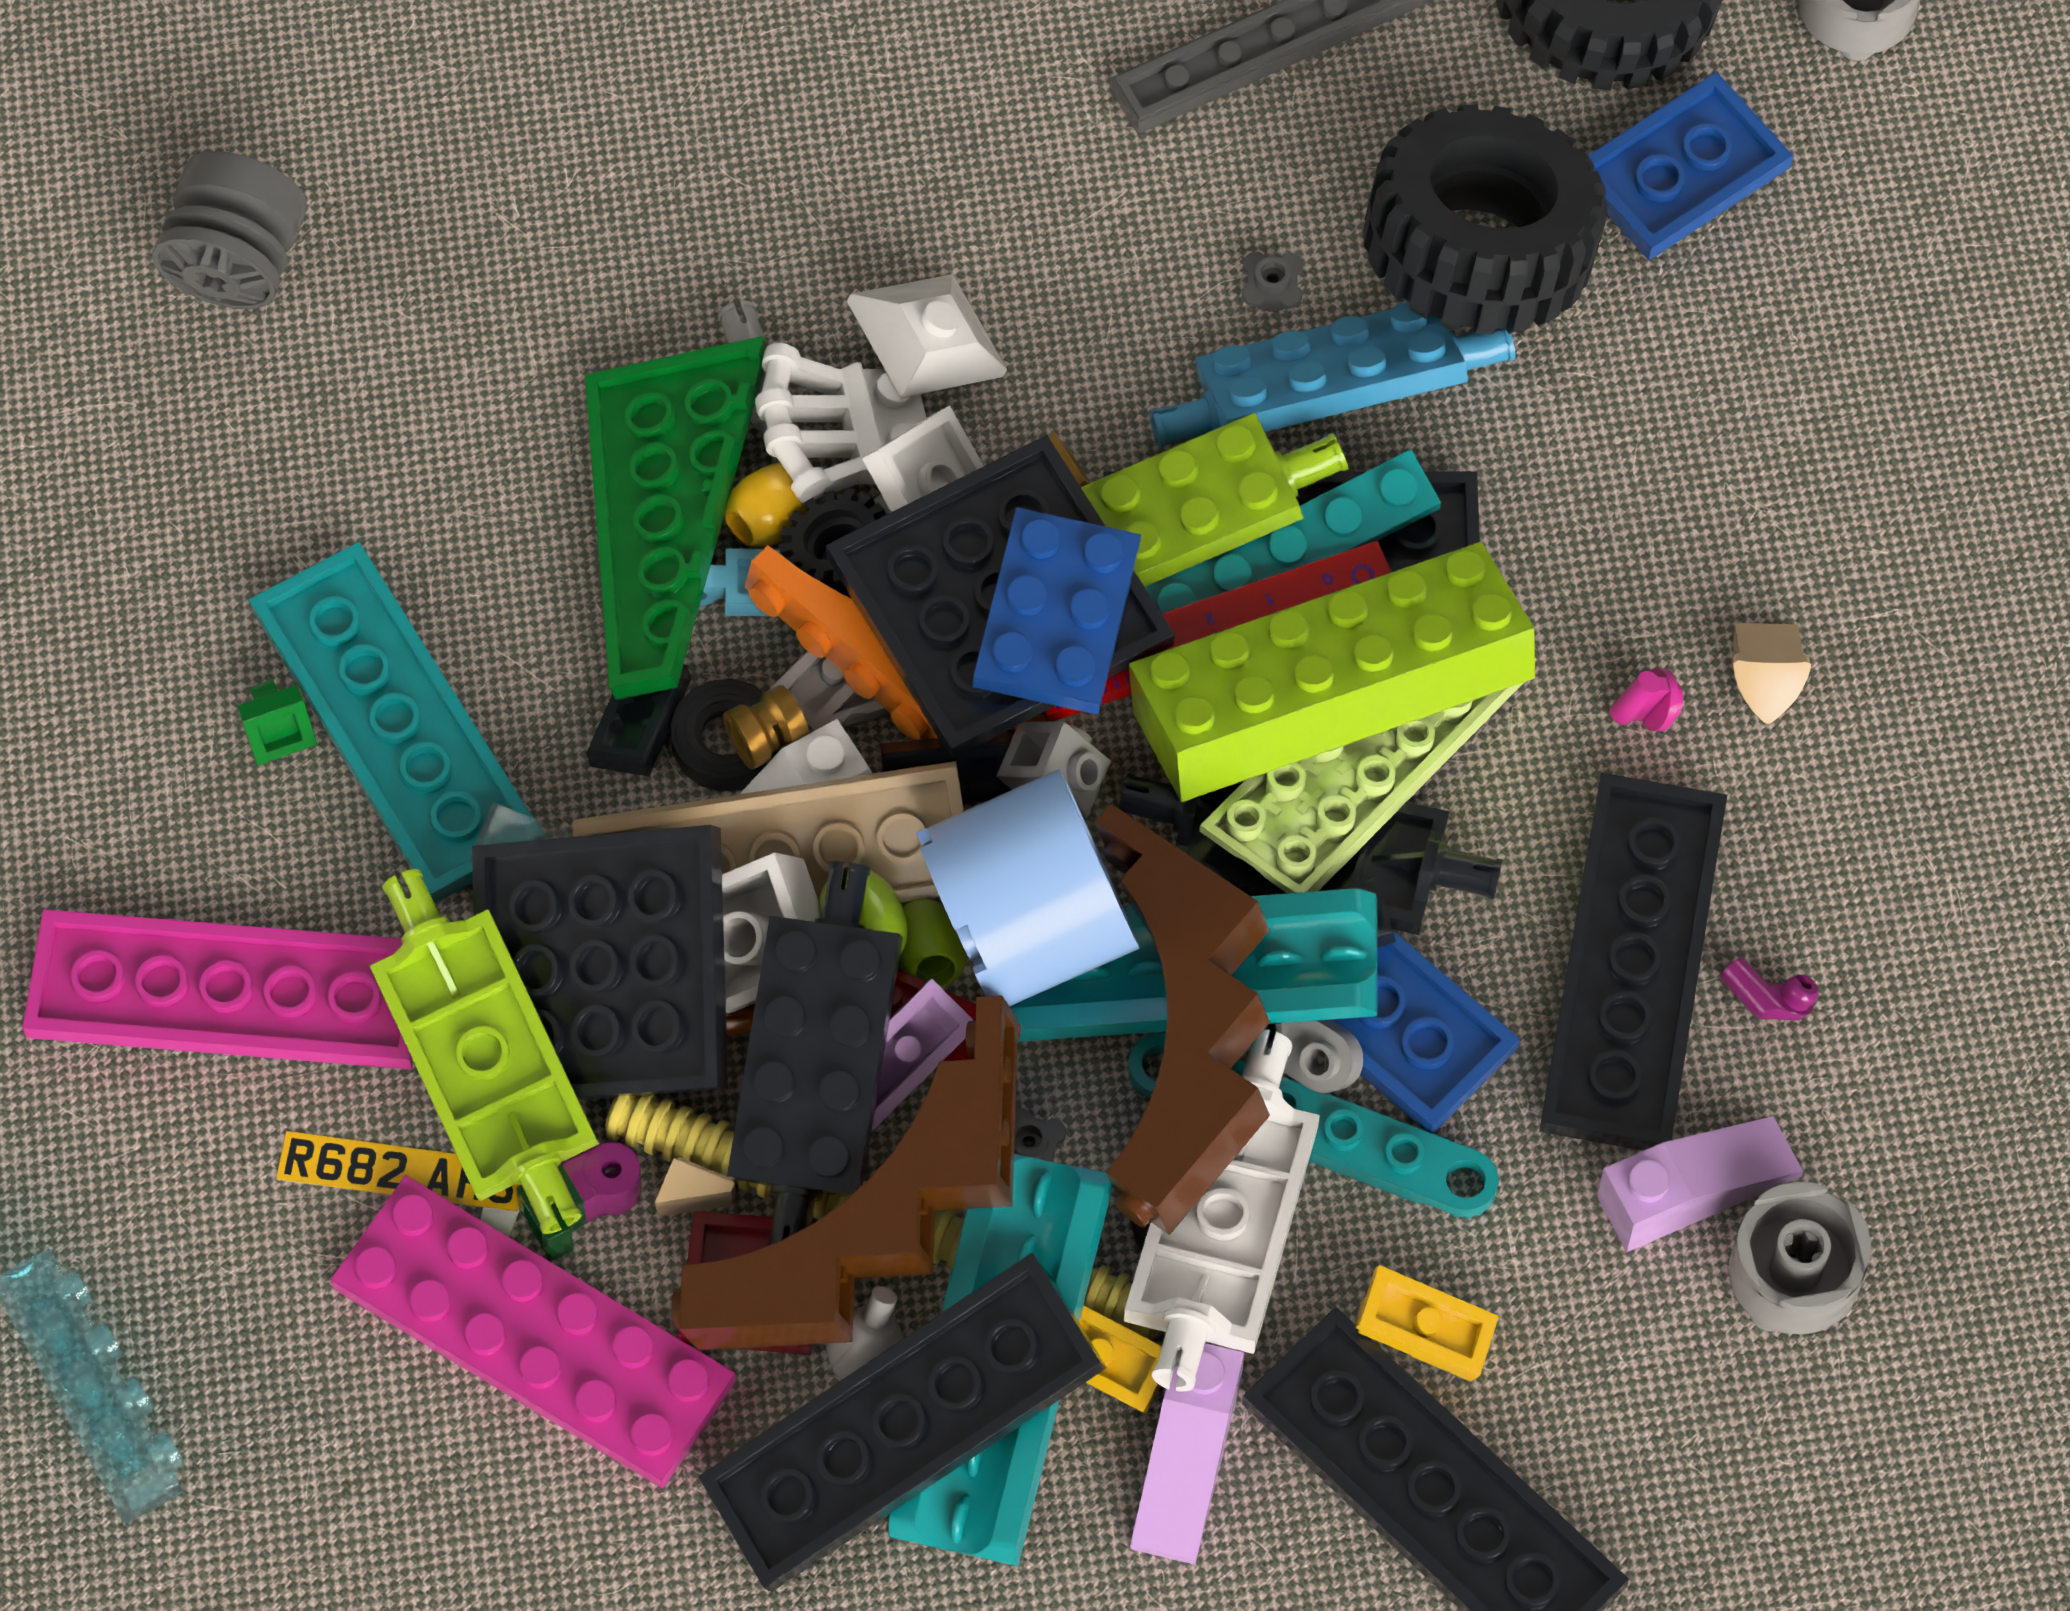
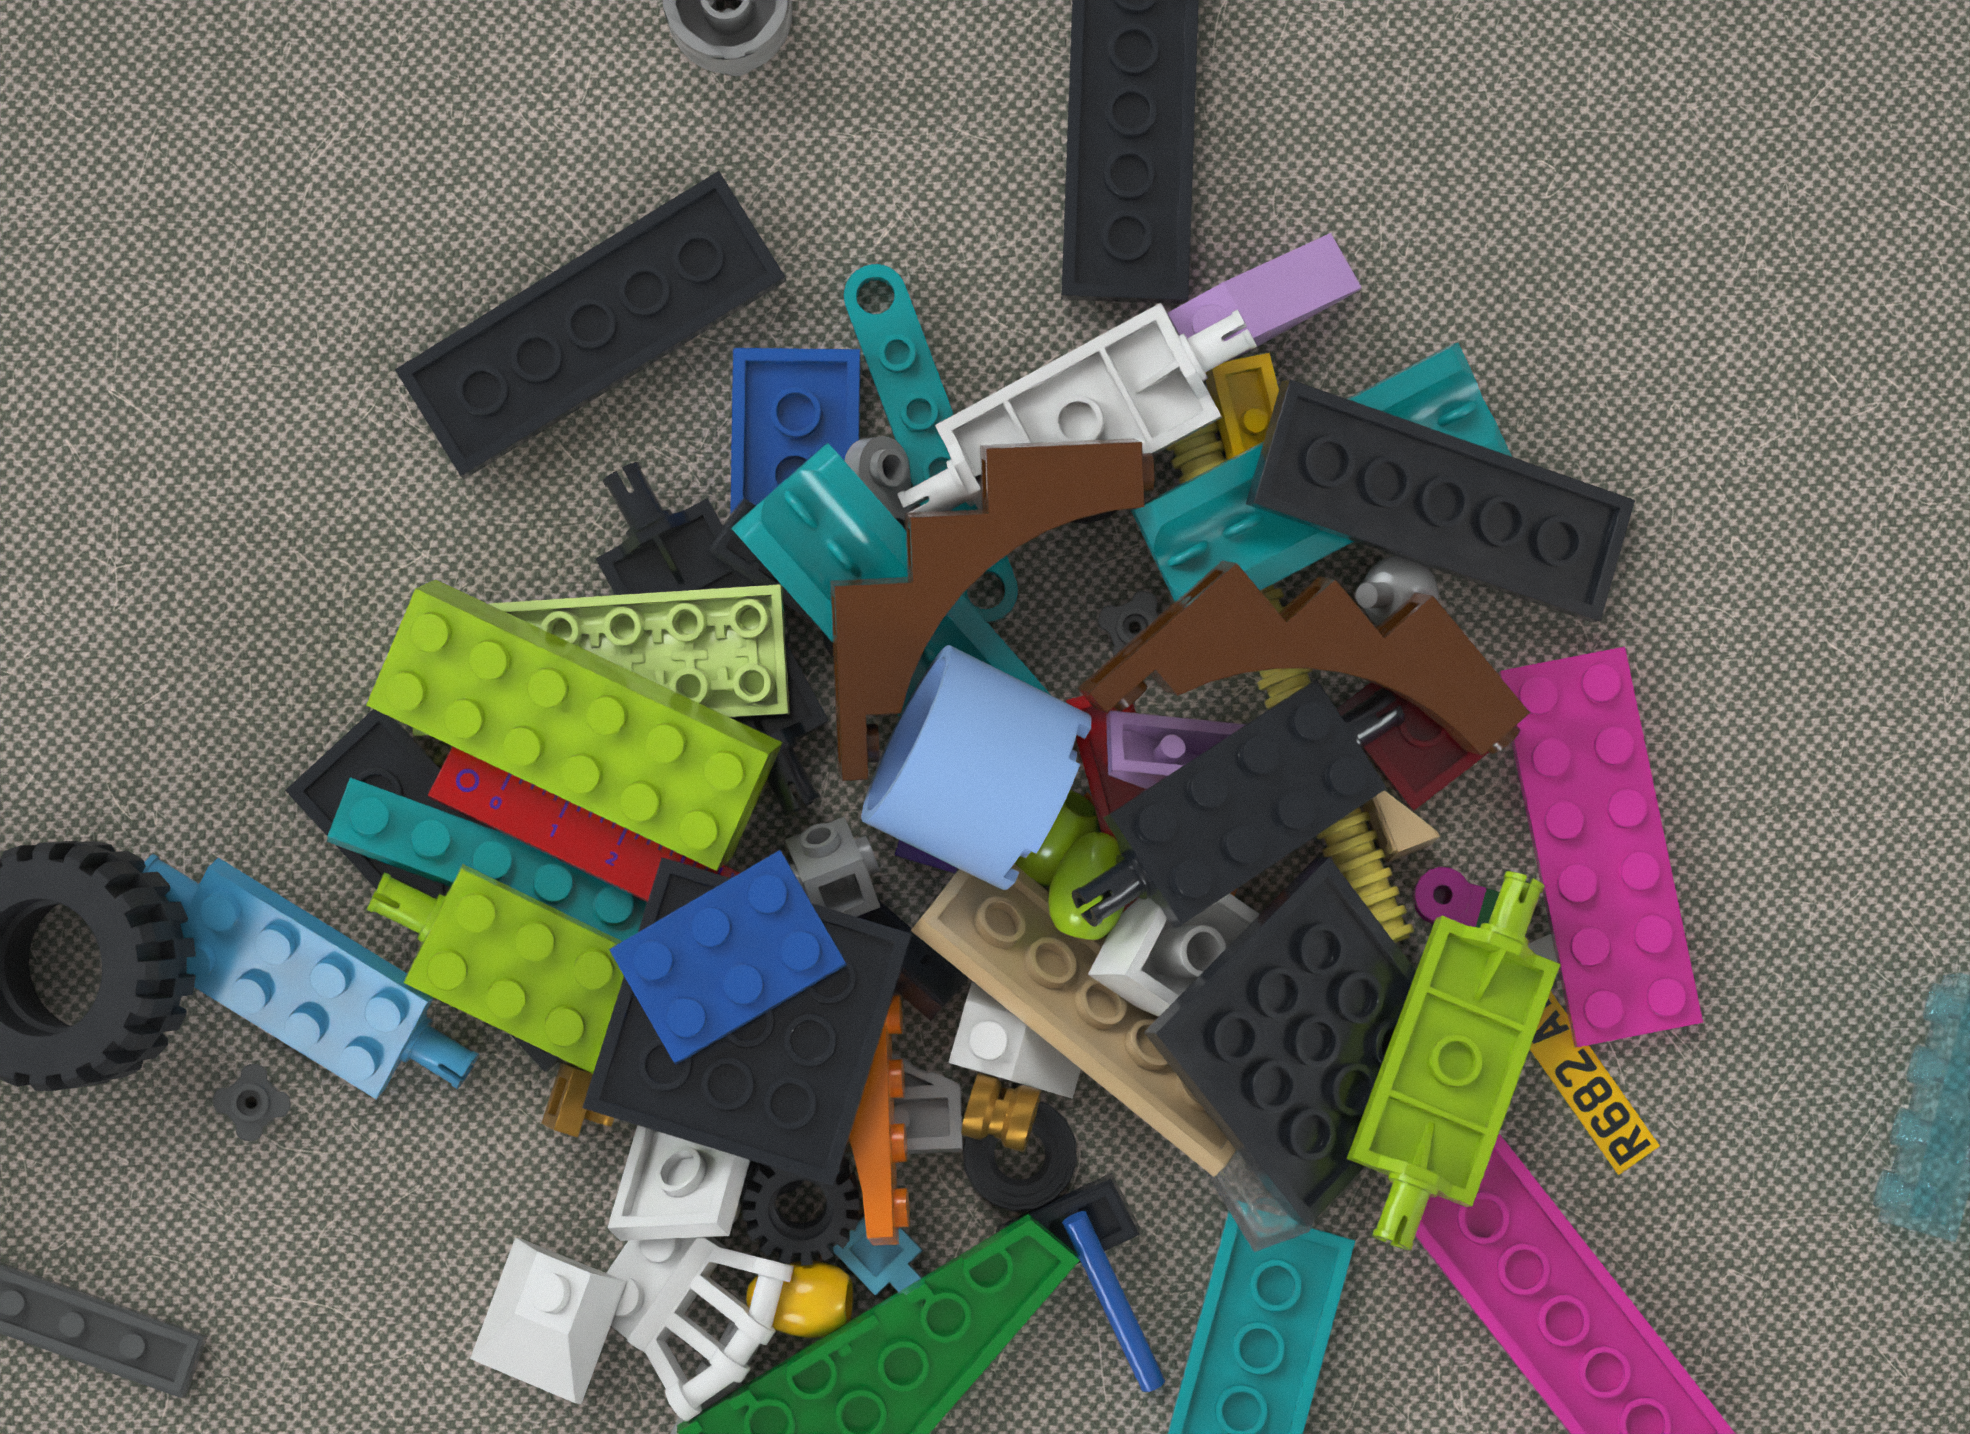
camera: 130 degrees left, 20 degrees up
(558, 698) = (1113, 1301): none -> blue bar
(1426, 1323) = (1016, 221): yellow plate -> none
(1650, 698) = (357, 494): dark pink plate -> none
(1693, 1179) = (724, 134): lavender slope -> none
(1769, 667) = (251, 435): tan tile -> none
(1770, 1000) = (529, 205): magenta arm -> none

